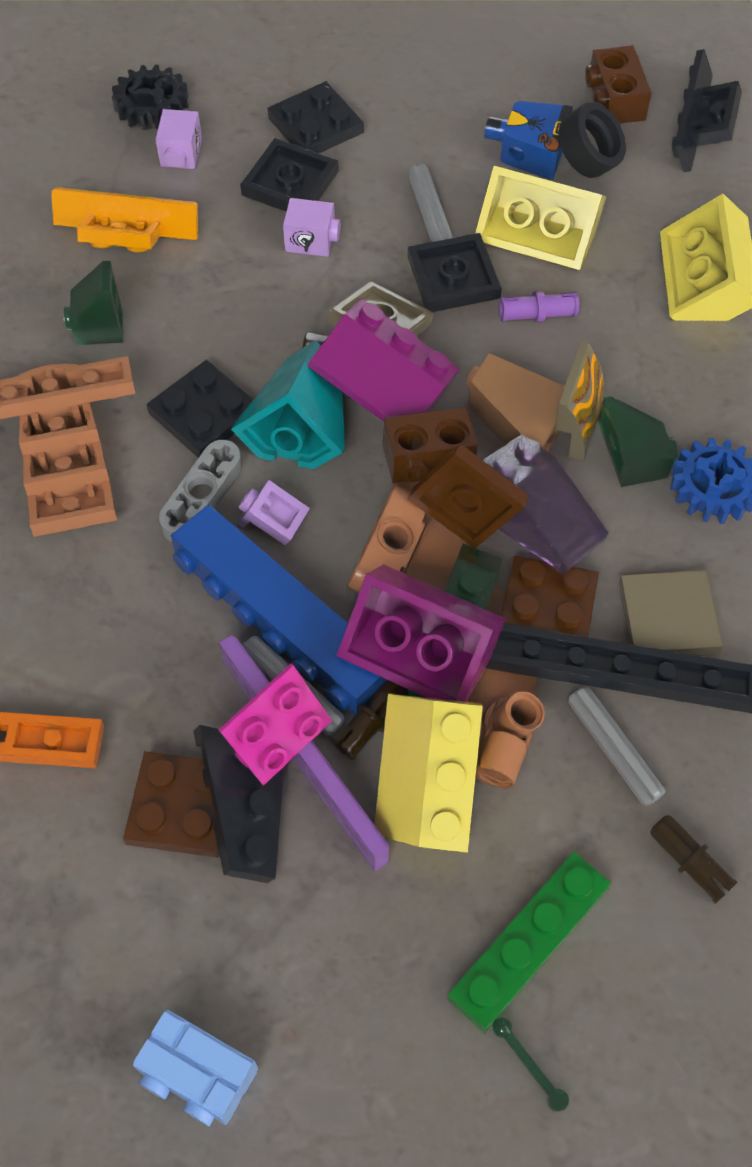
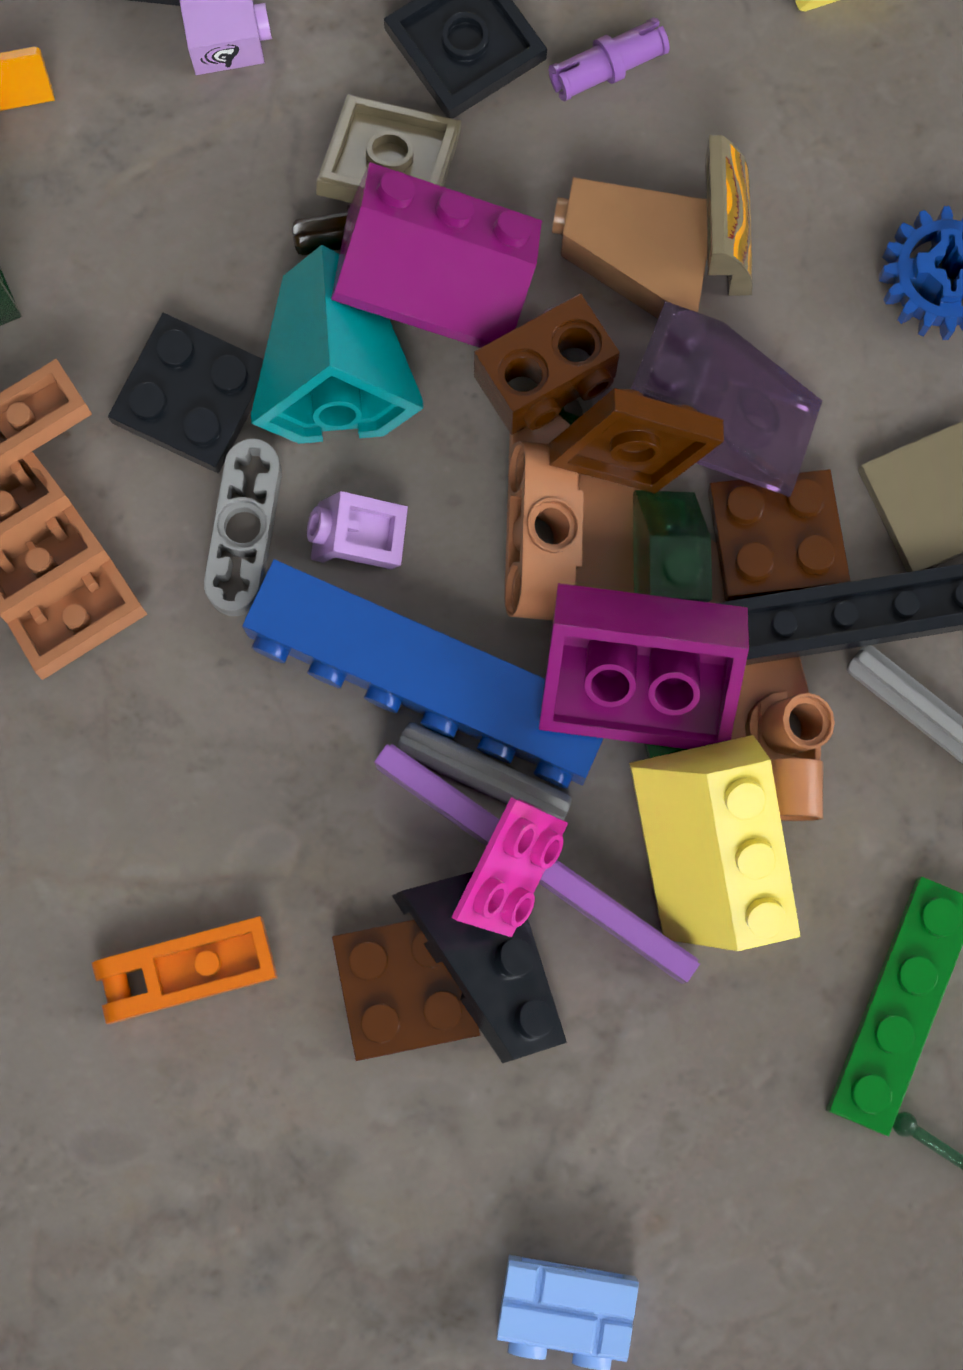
camera: 20 degrees left, 20 degrees up
(367, 721) = (604, 792): dark brown axle -> none
(636, 443) = (819, 250): clear green slope -> none

